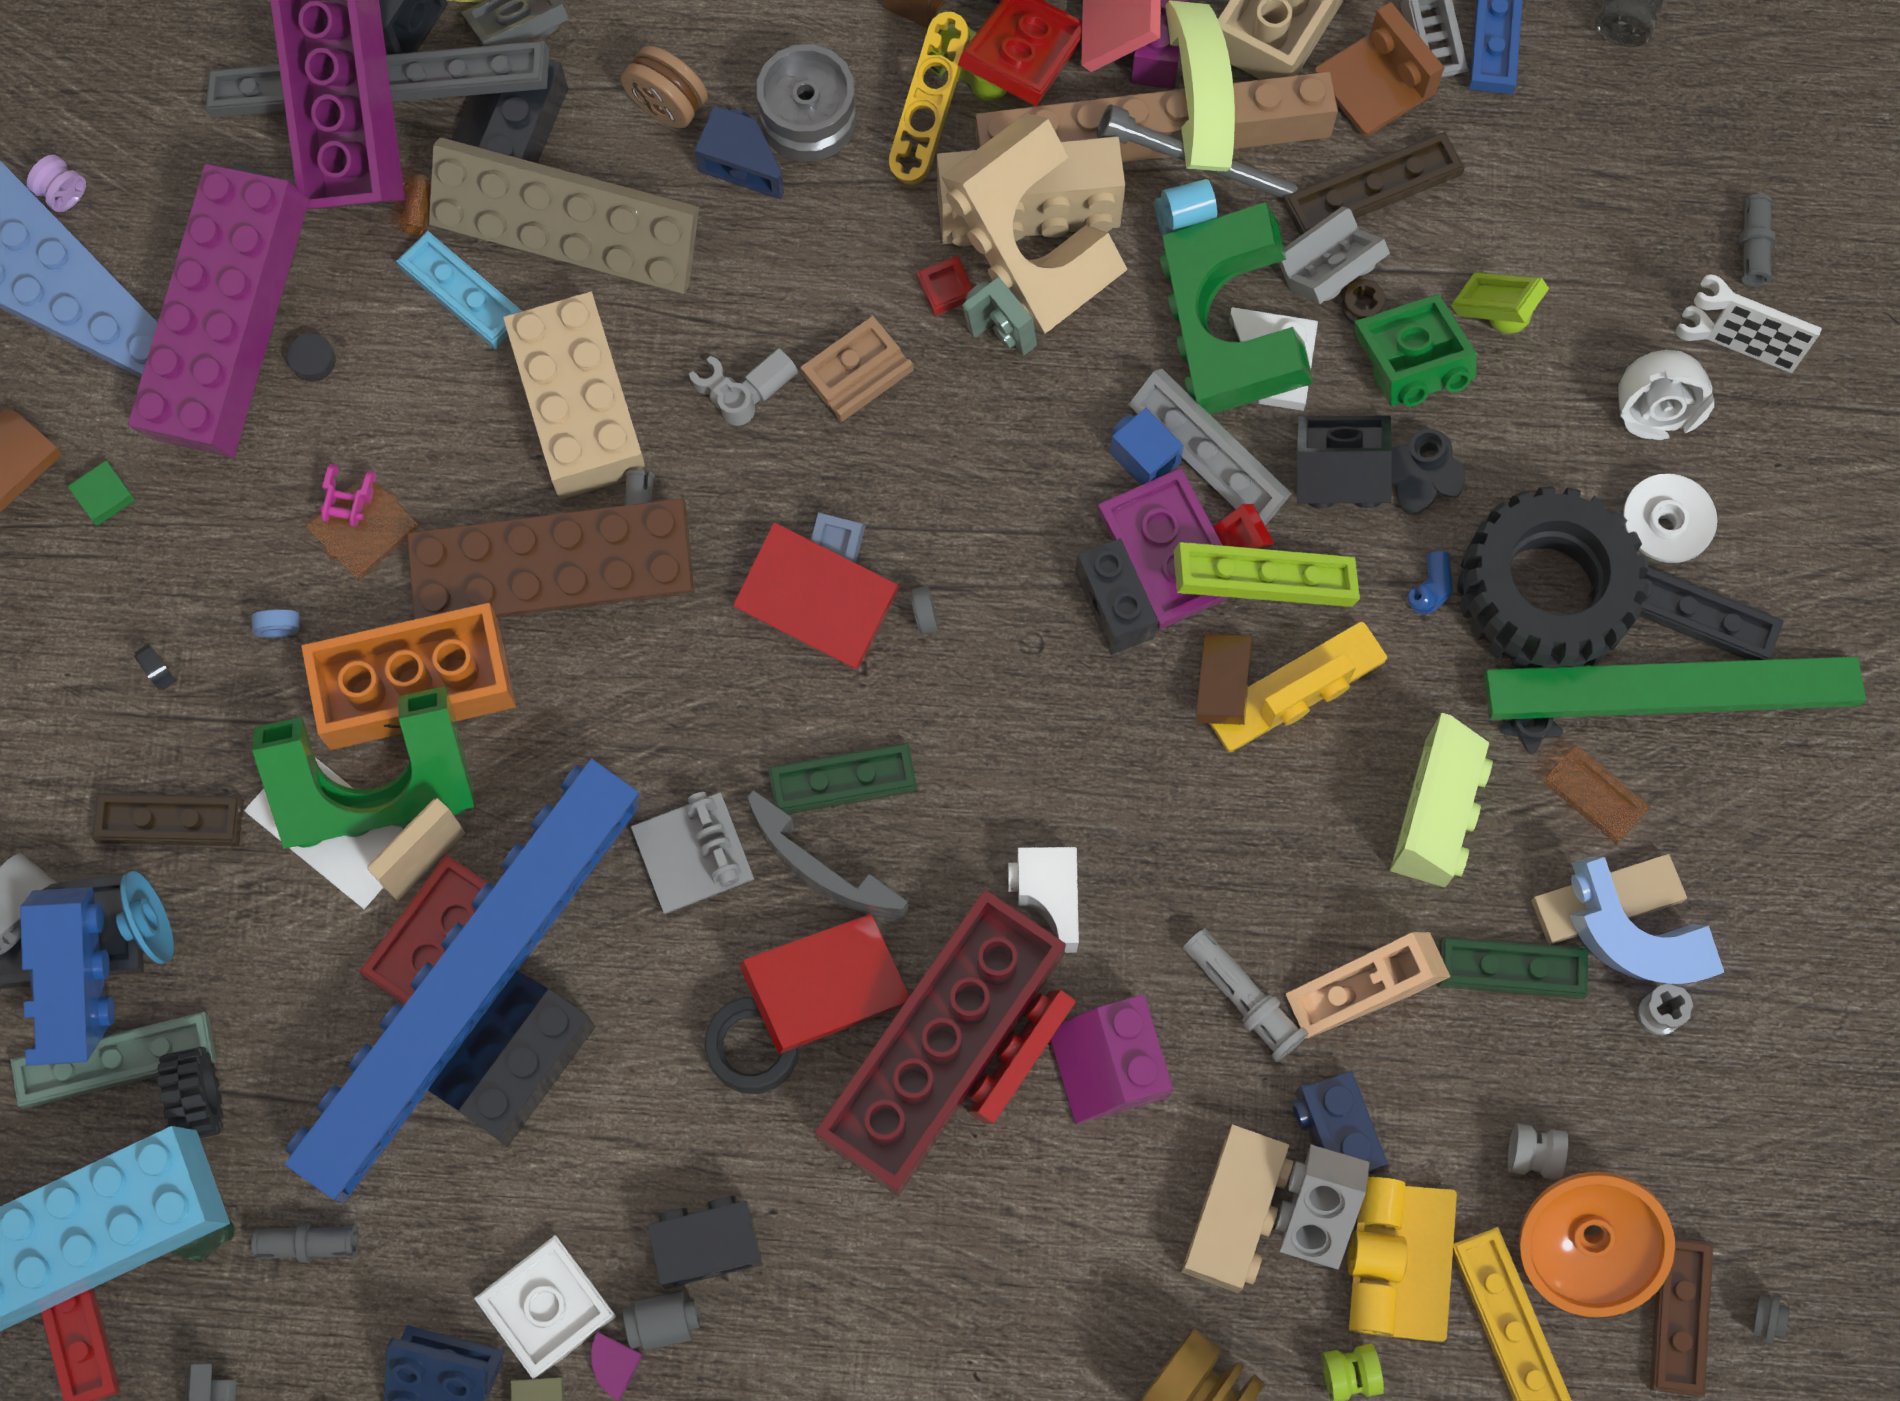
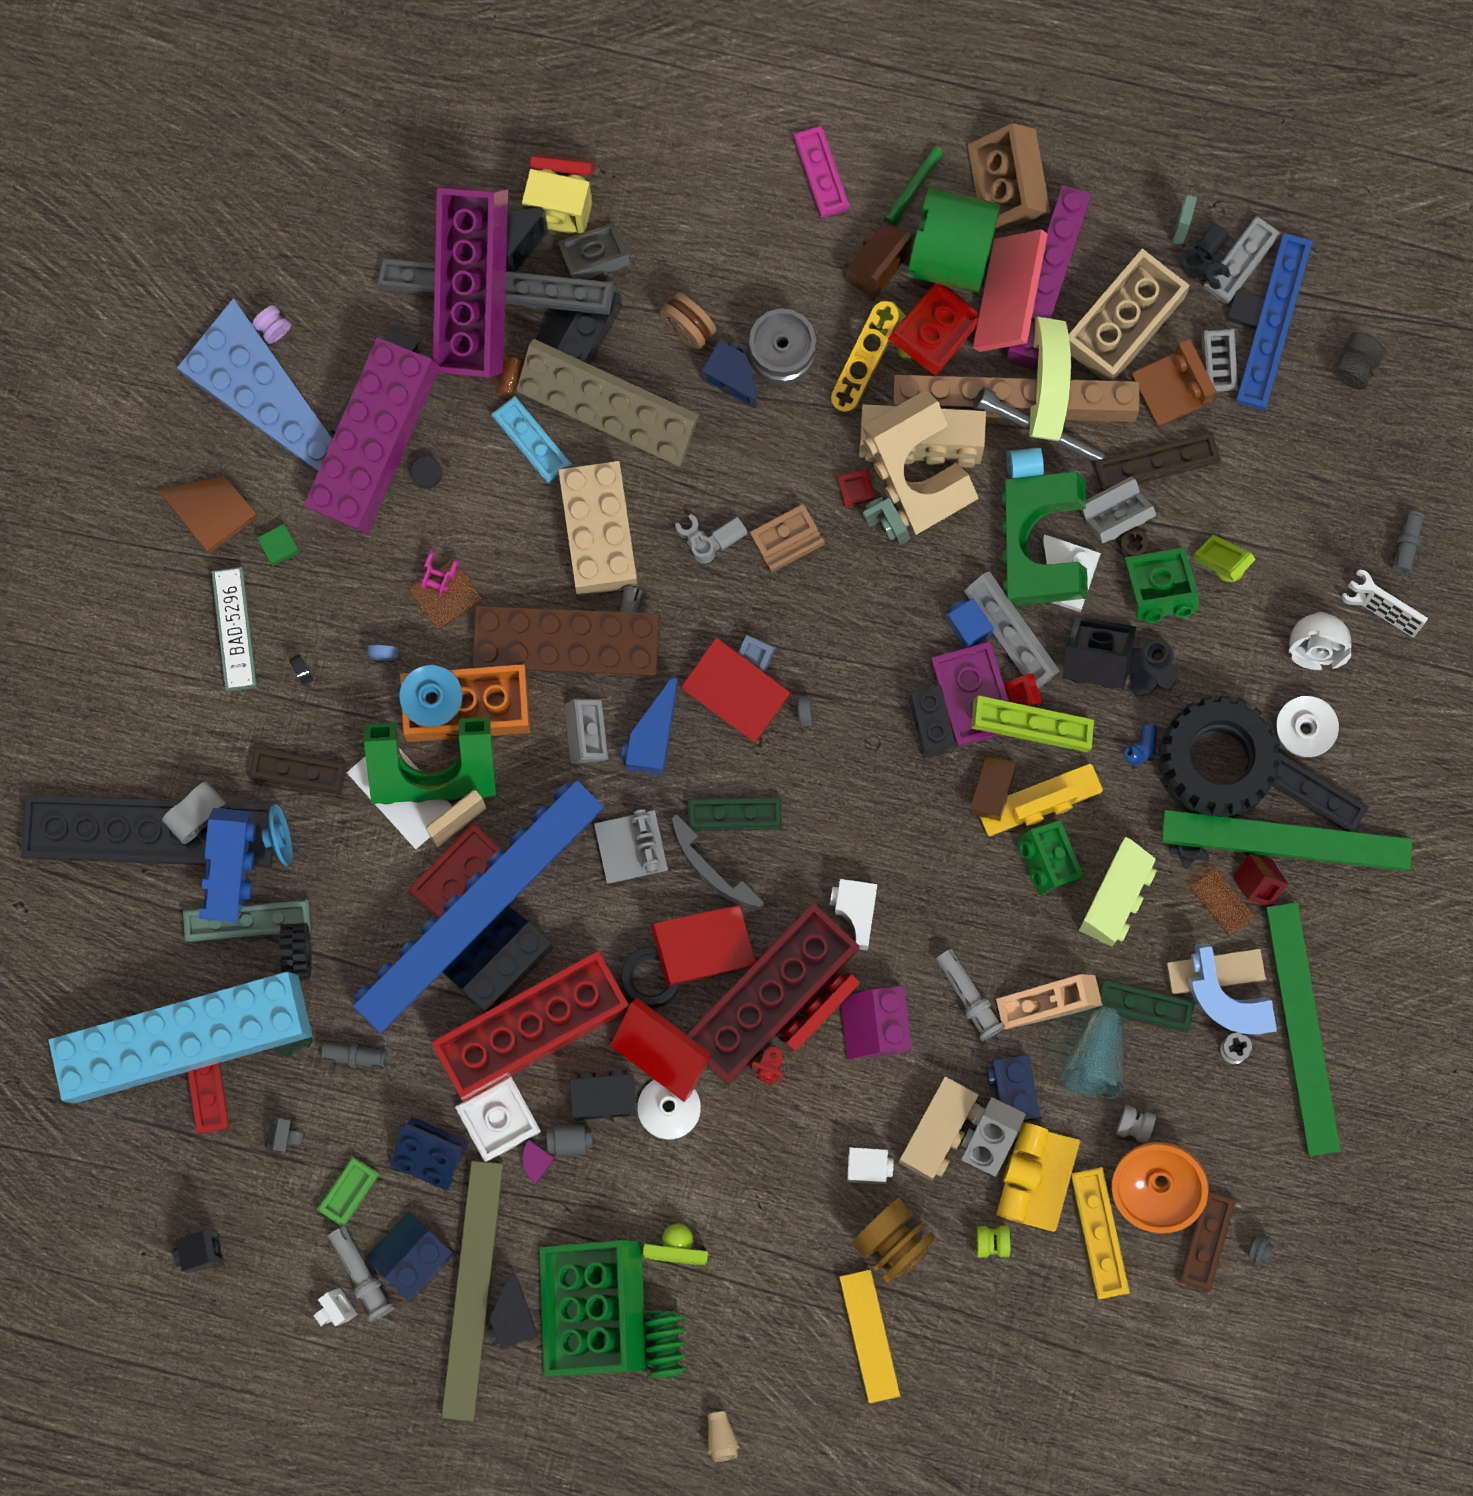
camera: 10 degrees right, 5 degrees up
(48, 625) = (234, 629): none -> white tile
(341, 649) = (426, 681): none -> dark azure dish
(573, 1152) = (530, 1026): none -> red brick
(599, 692) = (585, 731): none -> light grey slope
(698, 682) = (651, 736): none -> blue slope
(783, 1155) = (660, 1049): none -> red tile
(816, 1270) = (667, 1124): none -> white dish
(957, 1155) = (769, 1066): none -> red hinge
(1138, 1285) = (869, 1166): none -> white brick
(1326, 768) = (1049, 857): none -> green bracket
(1459, 1057) = (1097, 1057): none -> clear light blue cone
(1647, 751) = (1260, 880): none -> dark red panel
(1758, 968) = (1302, 1030): none -> green tile

